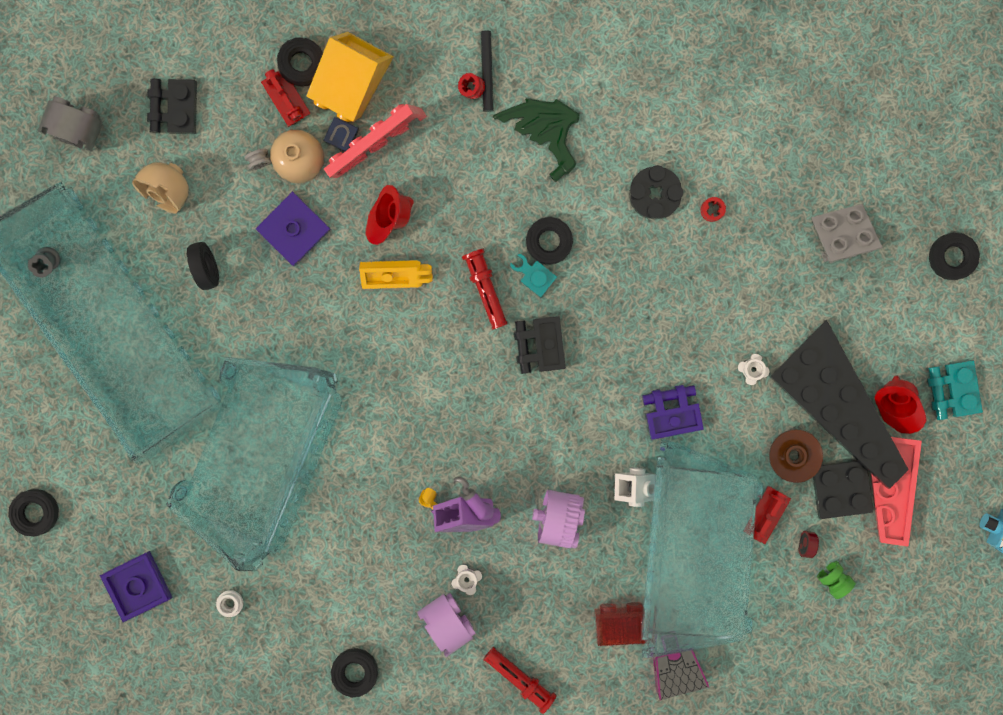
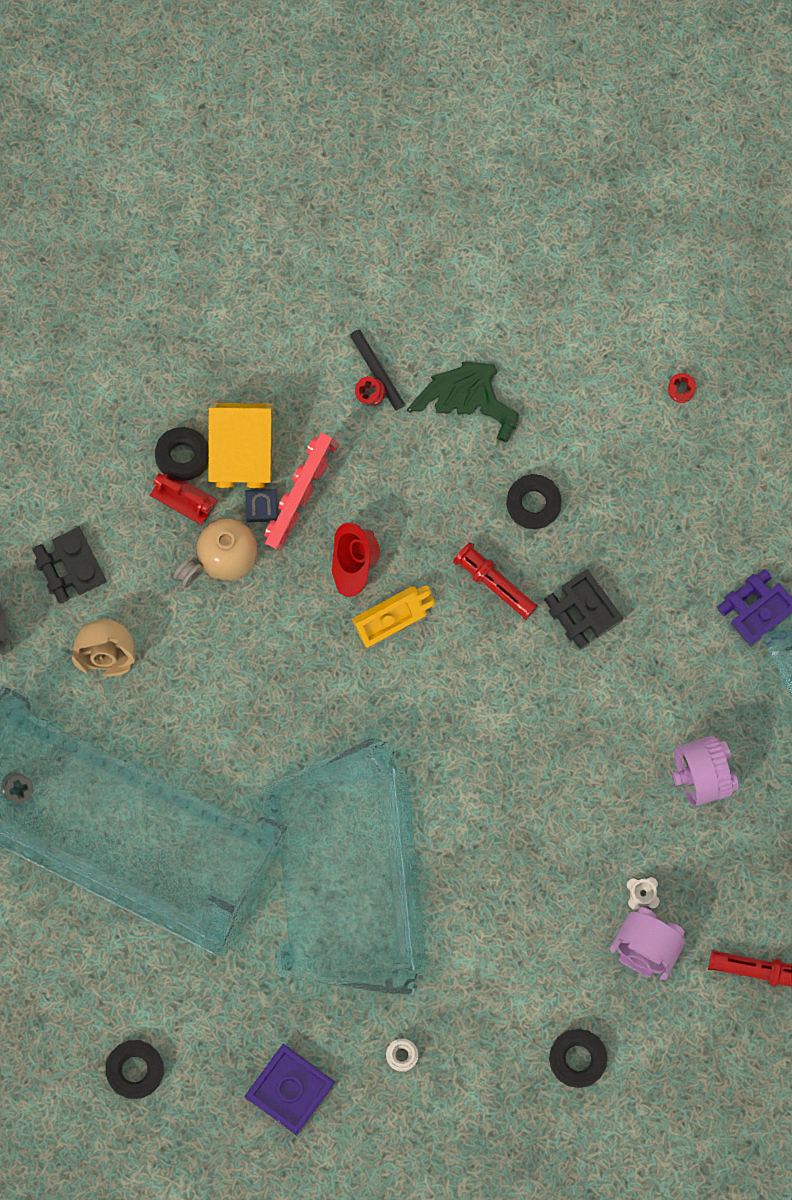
camera: 25 degrees left, 15 degrees down
(202, 265) = (189, 705): black tyre -> none
(293, 228) = (261, 624): dark purple plate -> none
(462, 513) = (600, 818): medium lavender torso -> none
(536, 277) = (541, 545): teal plate -> none
(635, 487) = (764, 698): white brick -> none
(658, 177) = (610, 384): black plate -> none

